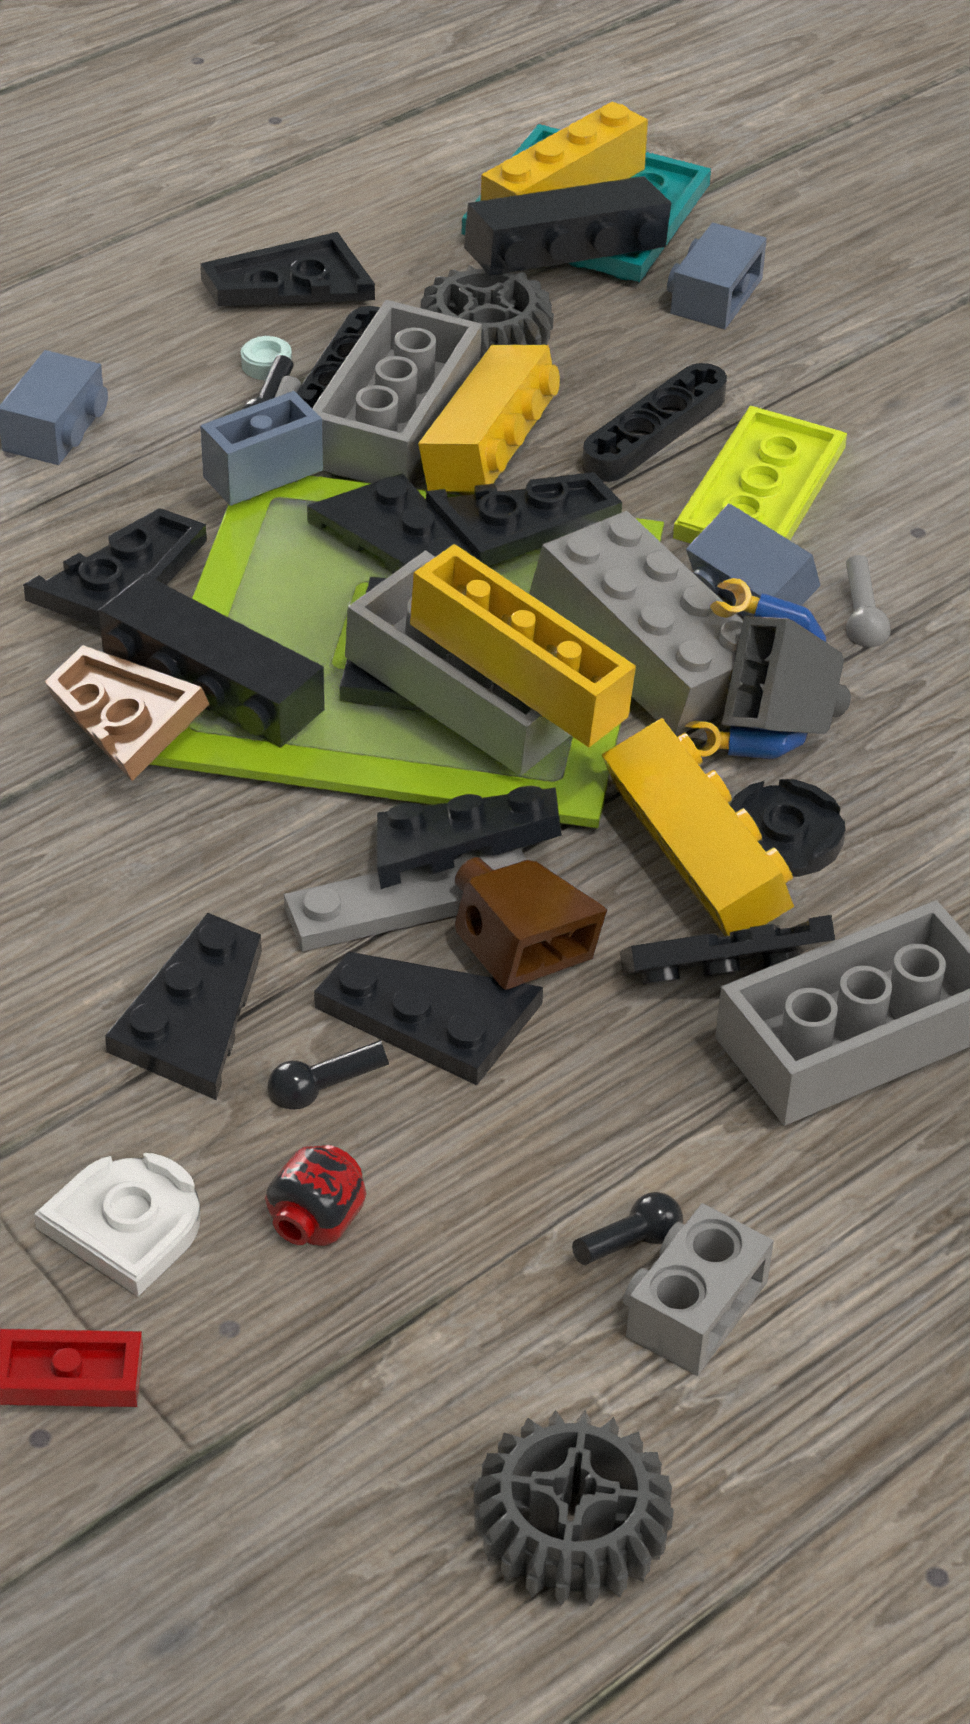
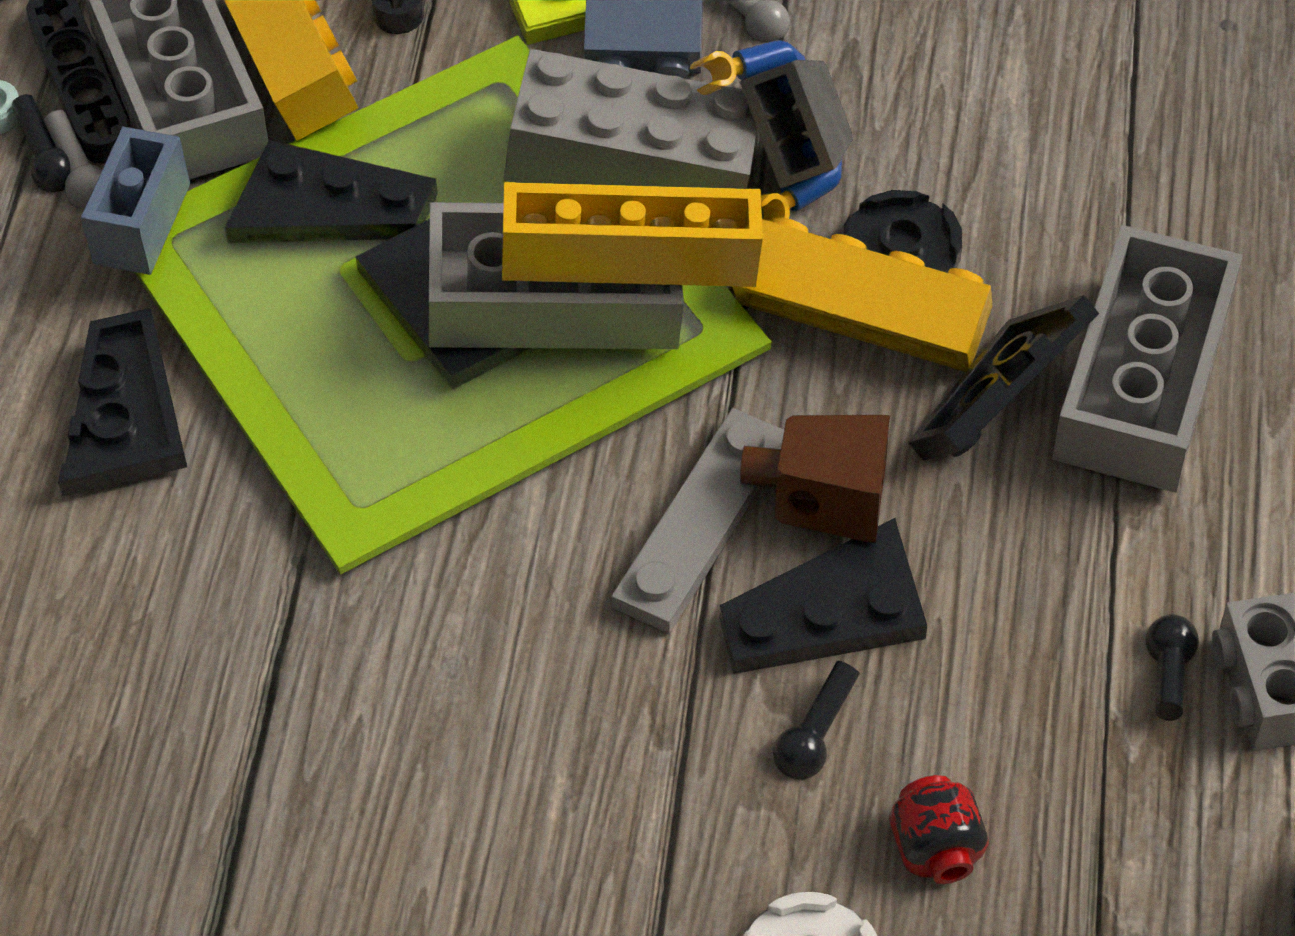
camera: 40 degrees left, 10 degrees up
(125, 705) = (290, 531): medium nougat wing -> none
(191, 1007) = (651, 752): black wing -> none
(240, 670) = (321, 432): black brick -> none
(443, 832) = (685, 438): black wing -> none
(522, 520) = (418, 110): black wing -> none

